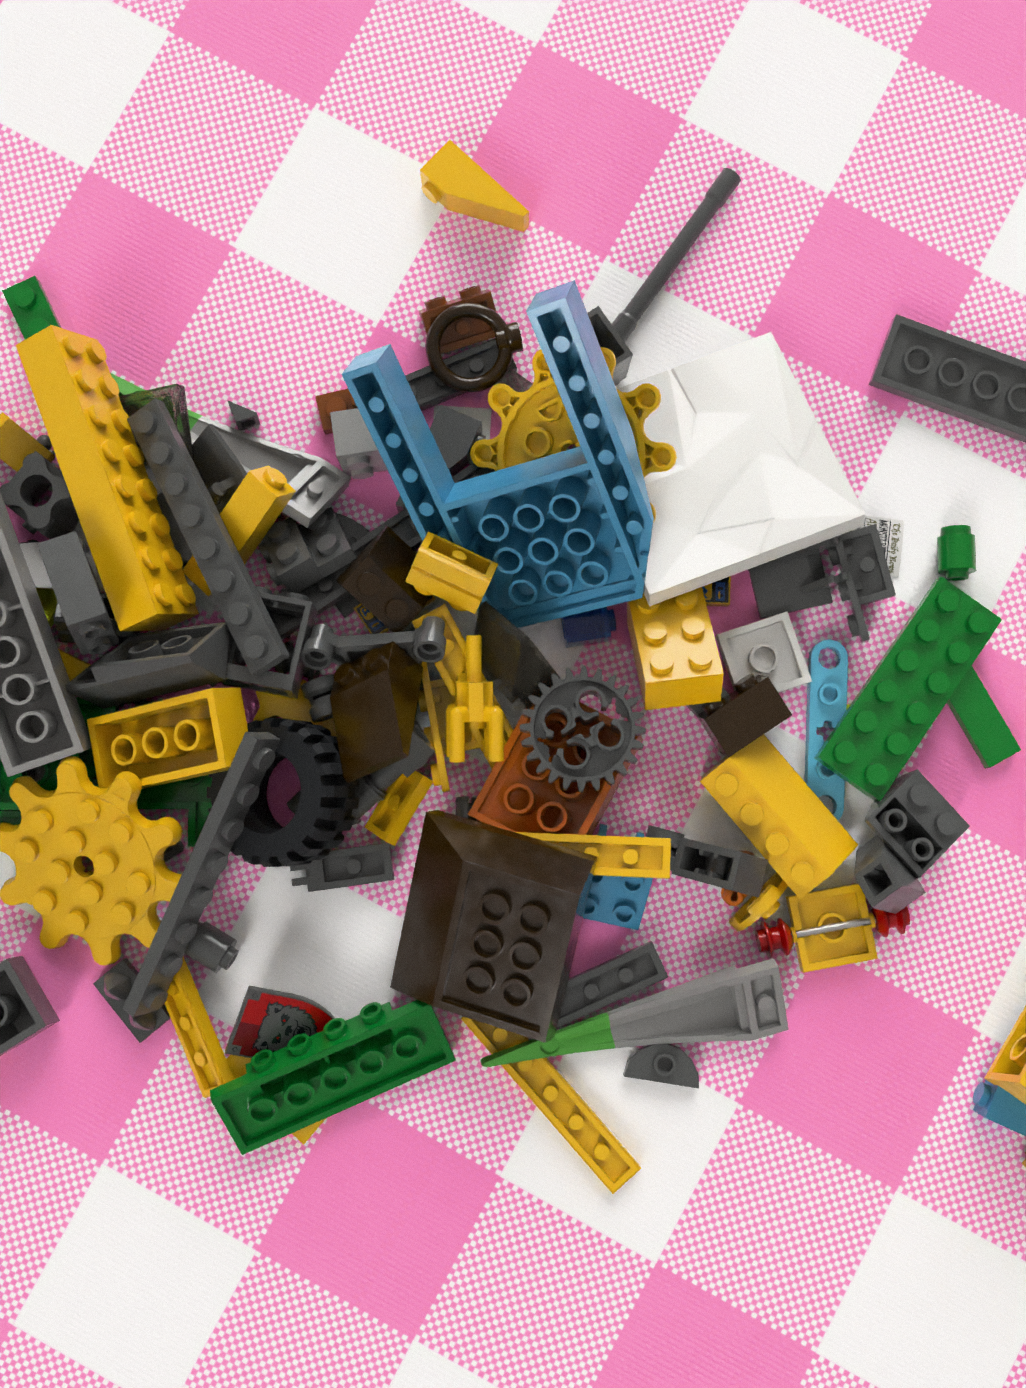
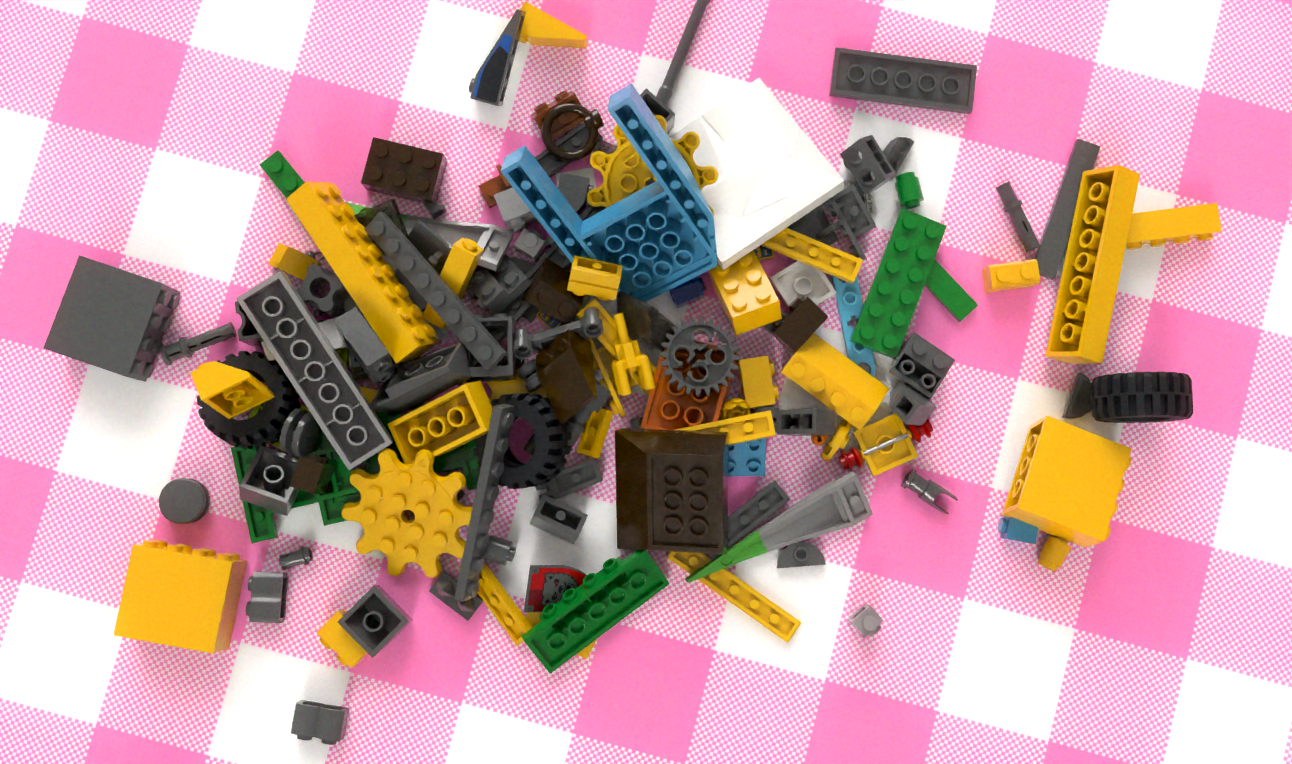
camera: 15 degrees left, 0 degrees up
(210, 348) = (404, 171): none -> dark brown brick
(311, 923) = (558, 519): none -> dark grey brick
(371, 500) = (531, 244): none -> light grey brick
(380, 232) = (494, 74): none -> slope
(617, 821) = (734, 408): none -> yellow plate
(660, 787) = (757, 382): none -> yellow brick
(740, 1190) = (866, 621): none -> light grey brick
(794, 616) = (815, 254): none -> yellow plate
(878, 1011) = (926, 489): none -> dark grey piece
(912, 495) = (872, 161): none -> dark grey brick
(945, 496) = (897, 151): none -> dark grey plate

